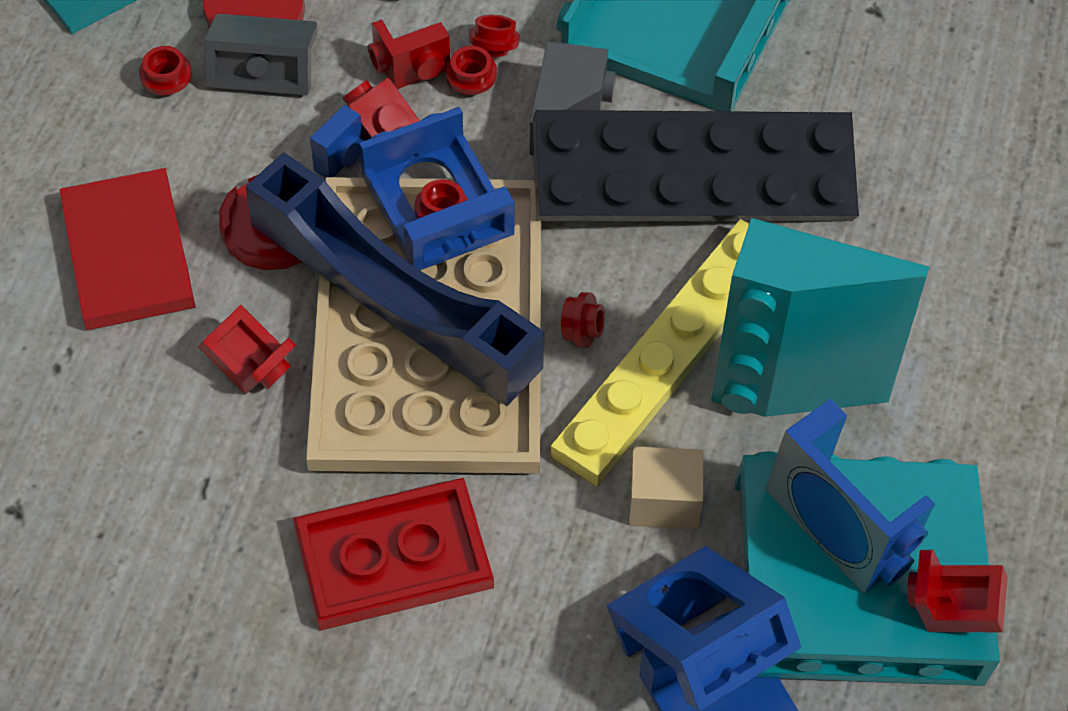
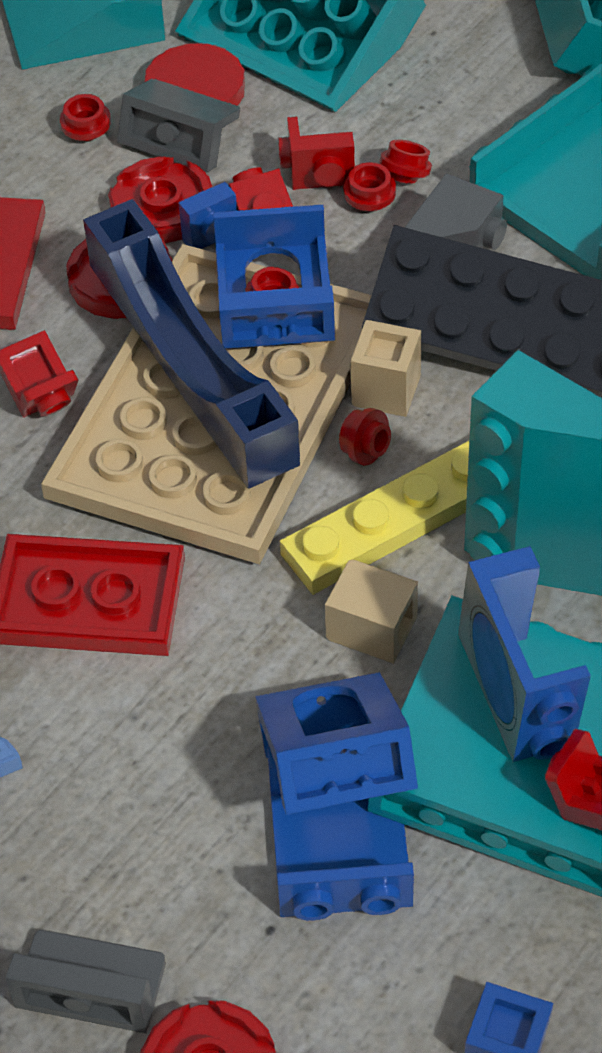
camera: 25 degrees right, 5 degrees down
(272, 124) = (157, 188): none -> red tile
(574, 248) = (386, 367): none -> tan panel

